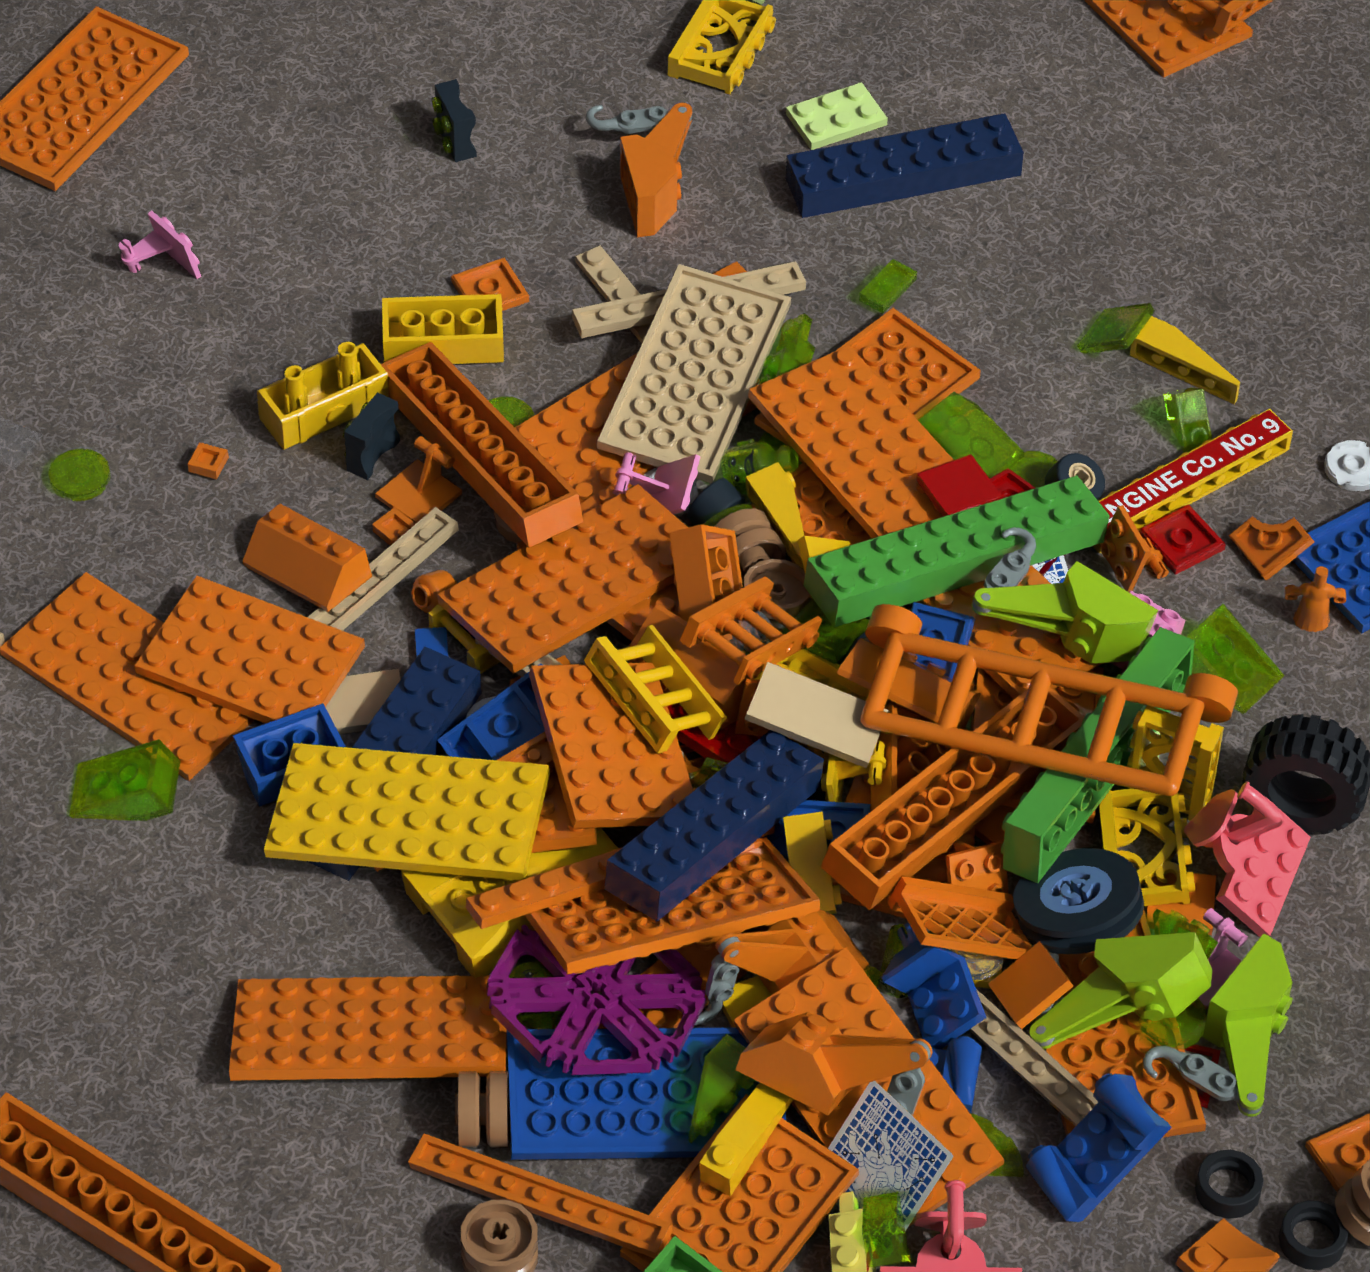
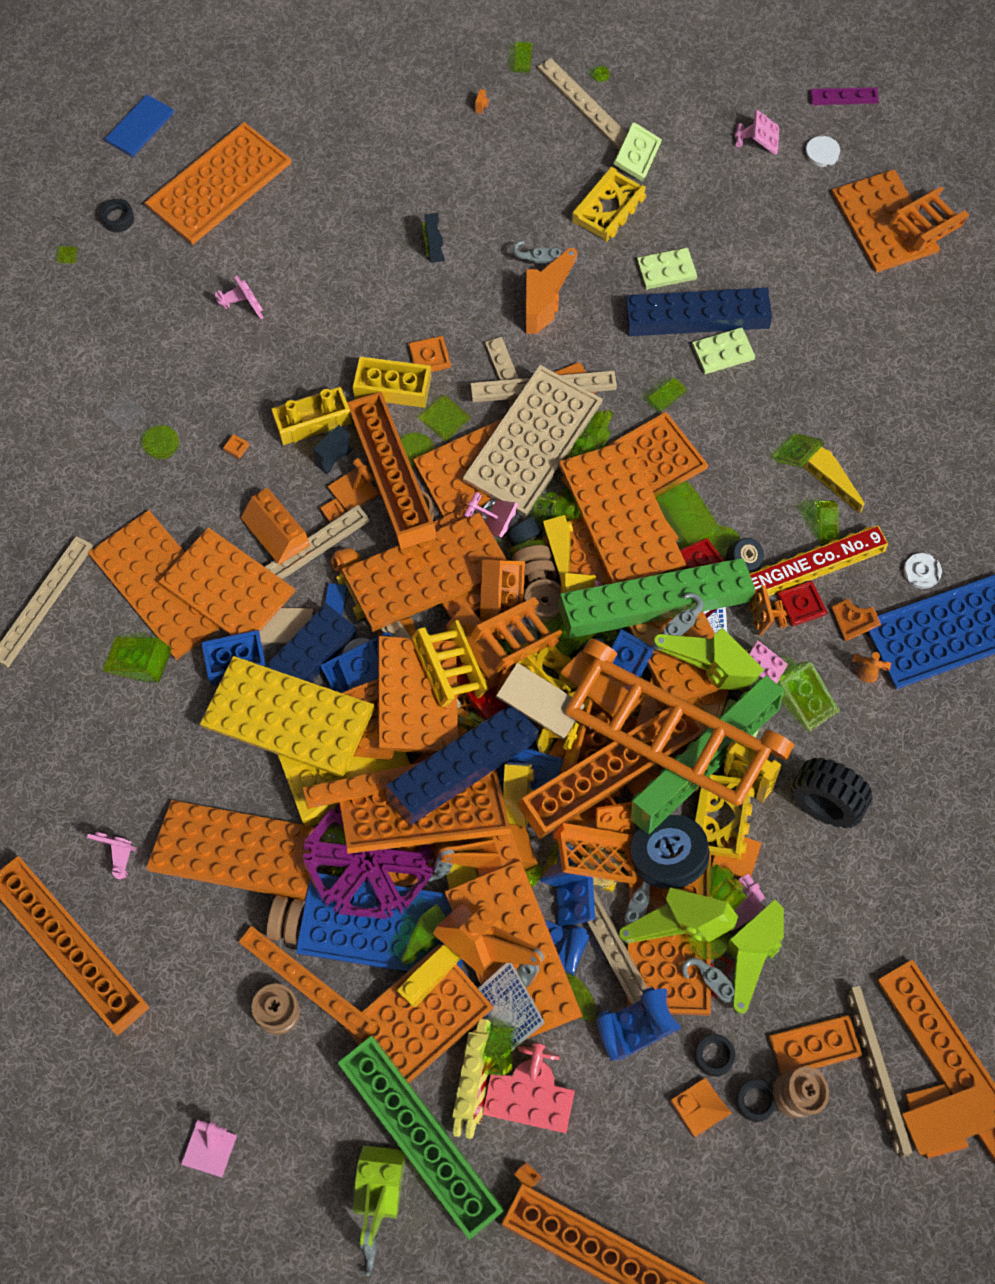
camera: 15 degrees right, 15 degrees up
(170, 1051) = (120, 852): none -> bright pink plate
(540, 371) = (445, 418): none -> clear neon green tile
(958, 214) = (723, 350): none -> yellowish green plate
(958, 486) = (667, 554): red tile -> none
(1030, 985) = (627, 902): orange tile -> none
(1254, 851) = (785, 837): coral plate -> none

